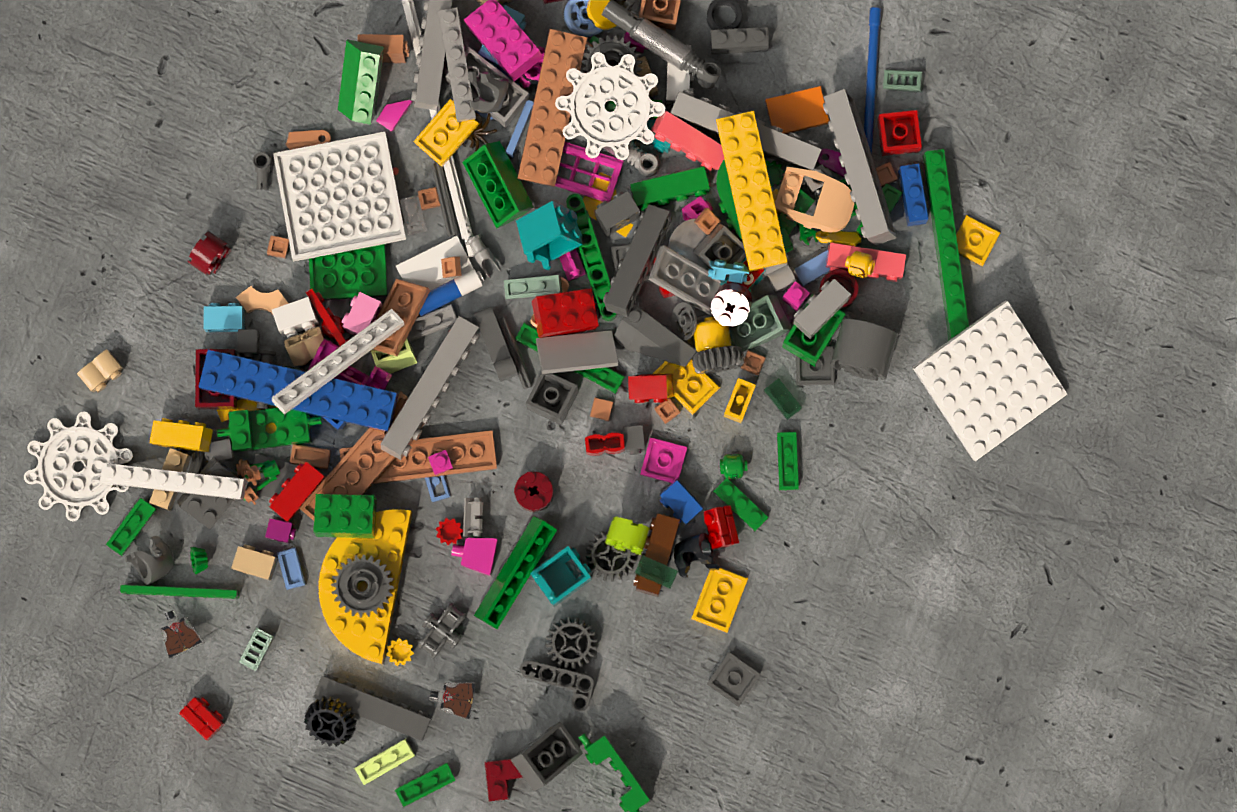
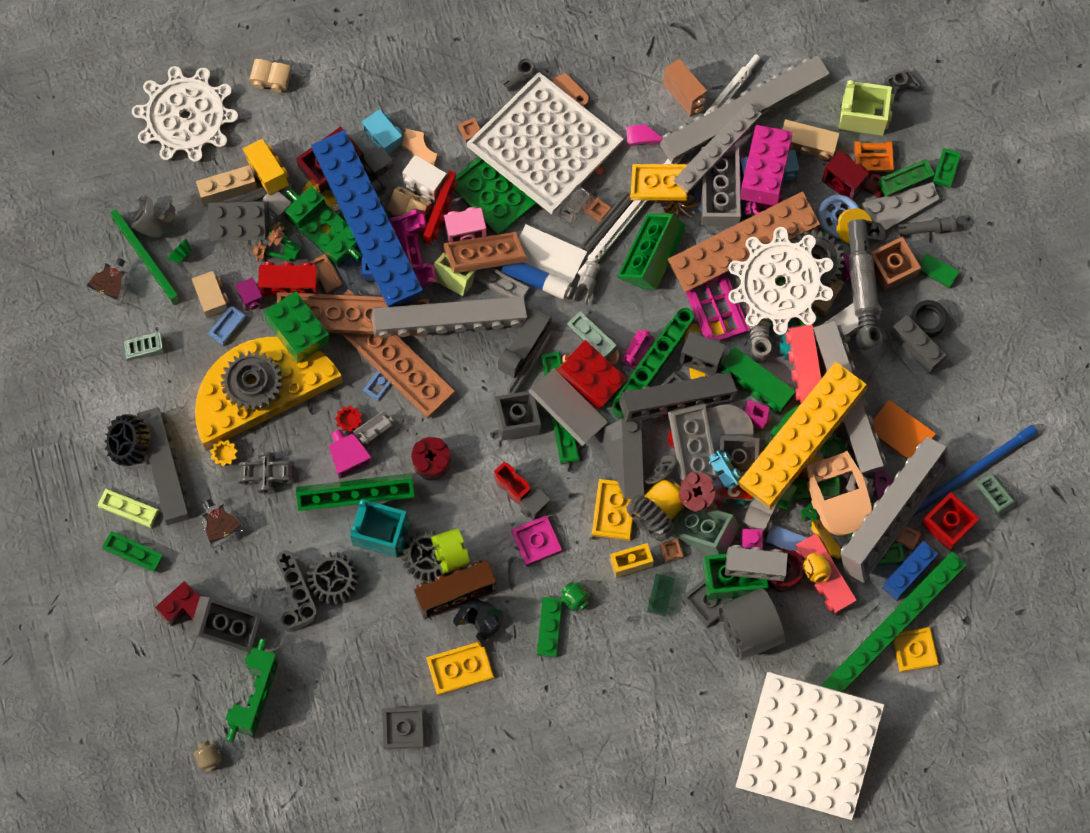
camera: 50 degrees right, 10 degrees down
(131, 527) = (168, 185): green plate -> none
(173, 481) = (225, 184): white plate -> none
(202, 717) = (58, 346): red brick -> none
(209, 253) = (422, 83): dark red brick -> none
(337, 361) = (412, 228): white plate -> none
(360, 81) = (646, 90): green slope -> none
(440, 462) = (397, 370): dark pink plate -> none
(451, 267) = (557, 264): nougat plate -> none
(490, 92) = (717, 185): dark grey piece -> none
(520, 128) = (696, 237): medium blue tile -> none
(549, 233) = (643, 312): teal container -> none
(601, 409) = (539, 462): nougat tile -> none
(650, 386) = (585, 482): brick -> none
(656, 572) = (438, 593): clear green plate -> none
(667, 411) = (578, 513): nougat tile -> none
(680, 501) = (513, 576): blue brick -> none
(707, 221) = (753, 425): nougat tile -> none
(721, 527) = (517, 623): red brick -> none
(787, 461) = (613, 636): green plate -> none

